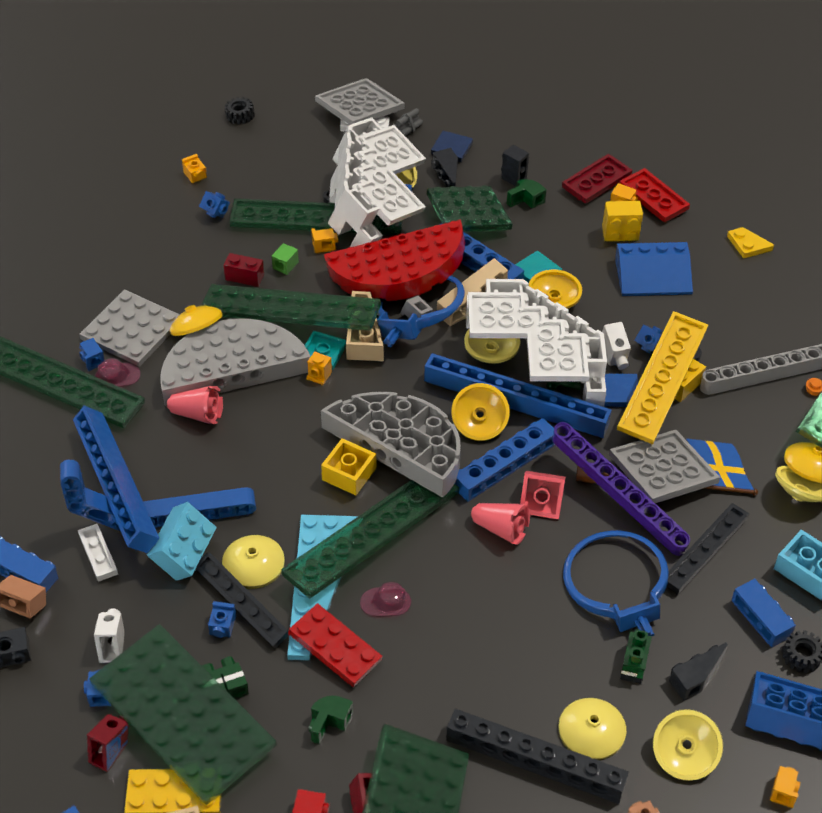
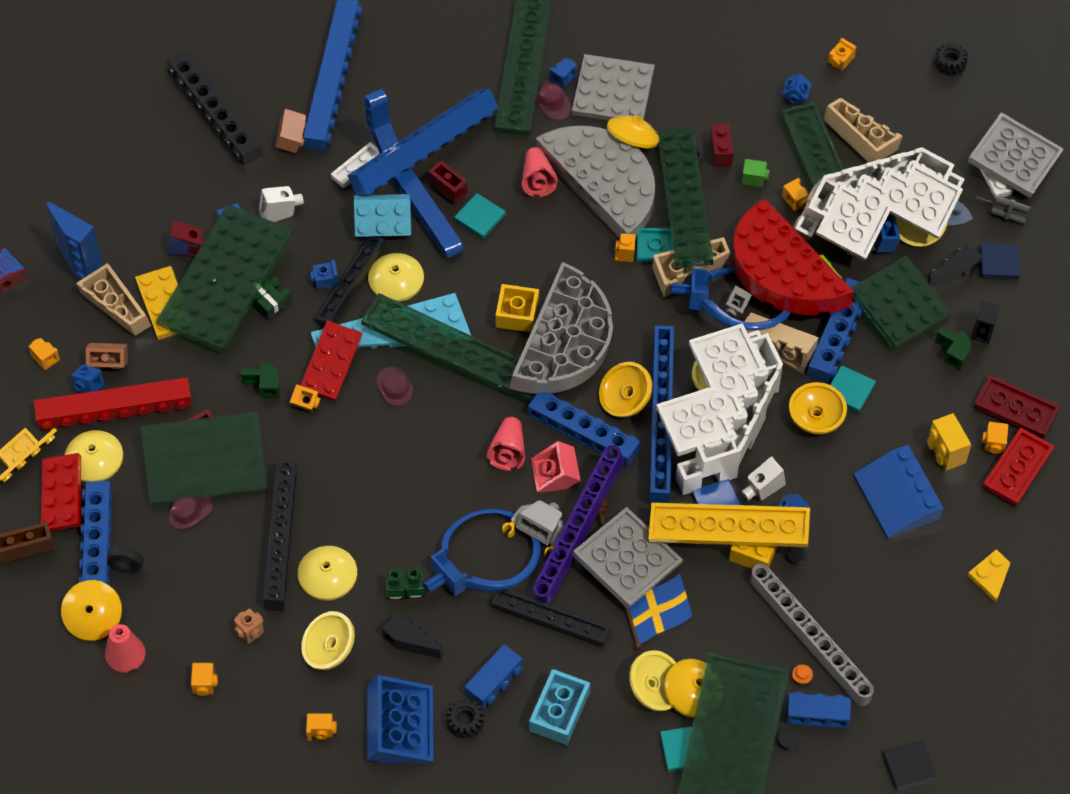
camera: 70 degrees right, 10 degrees up
(169, 478) = (447, 182): none -> dark red brick
(218, 469) = (480, 216): none -> teal tile
(283, 180) = (861, 131): none -> tan wedge
(371, 684) = (301, 392): none -> light orange brick
(602, 521) = (538, 521): none -> light grey torso

